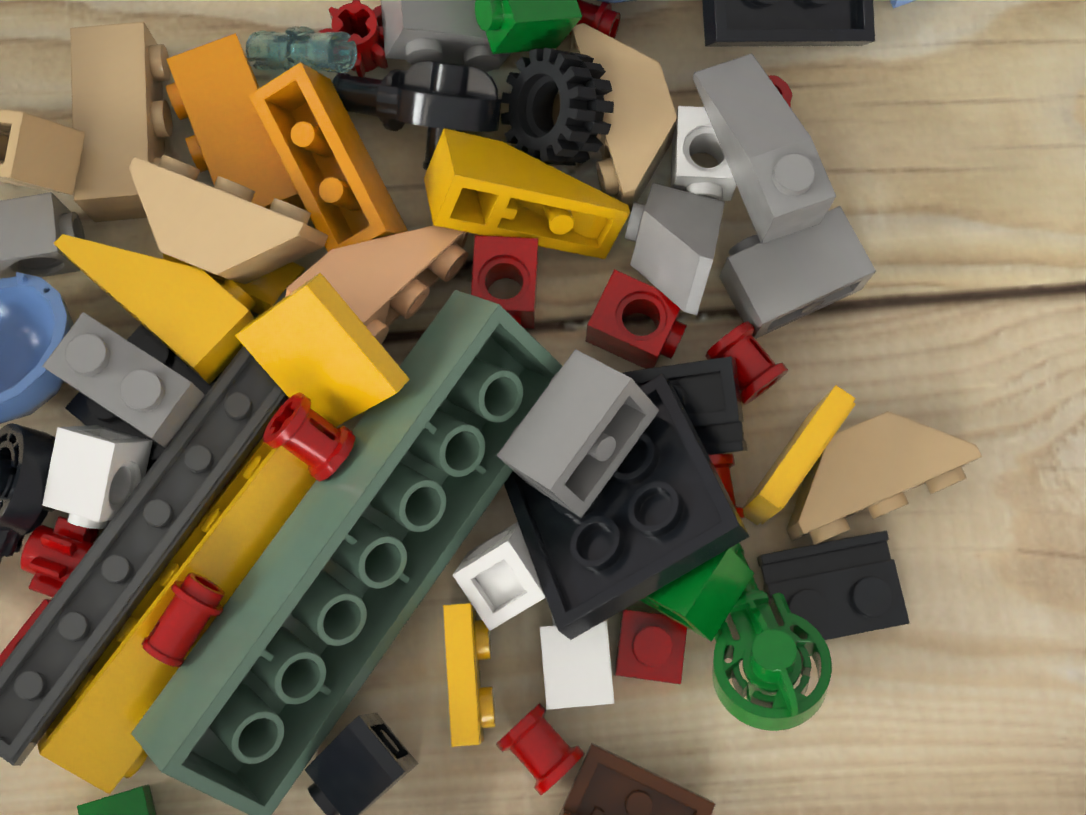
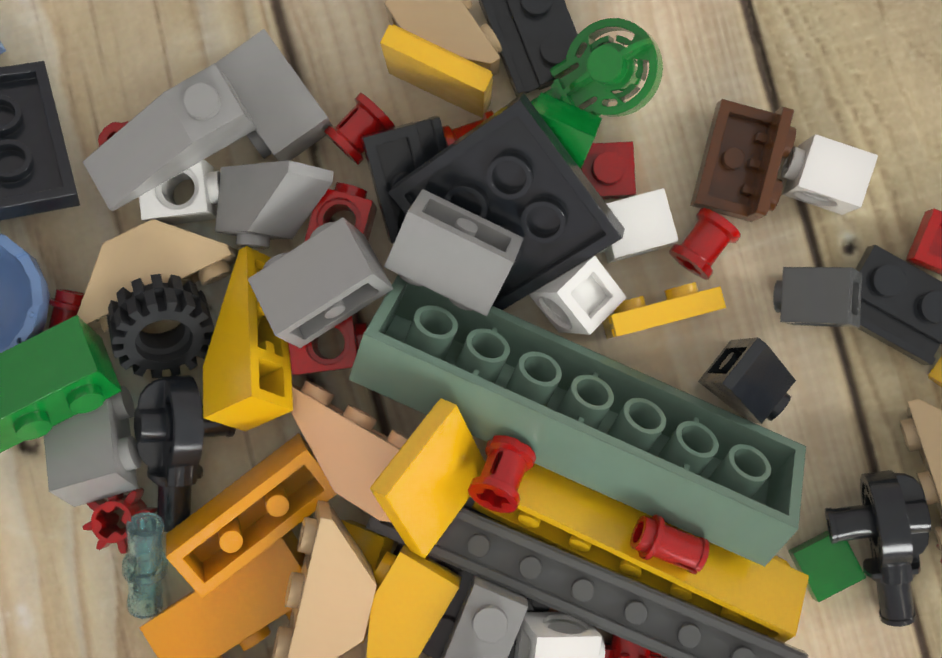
camera: 100 degrees left, 10 degrees up
(569, 275) = (319, 283): none -> light grey brick

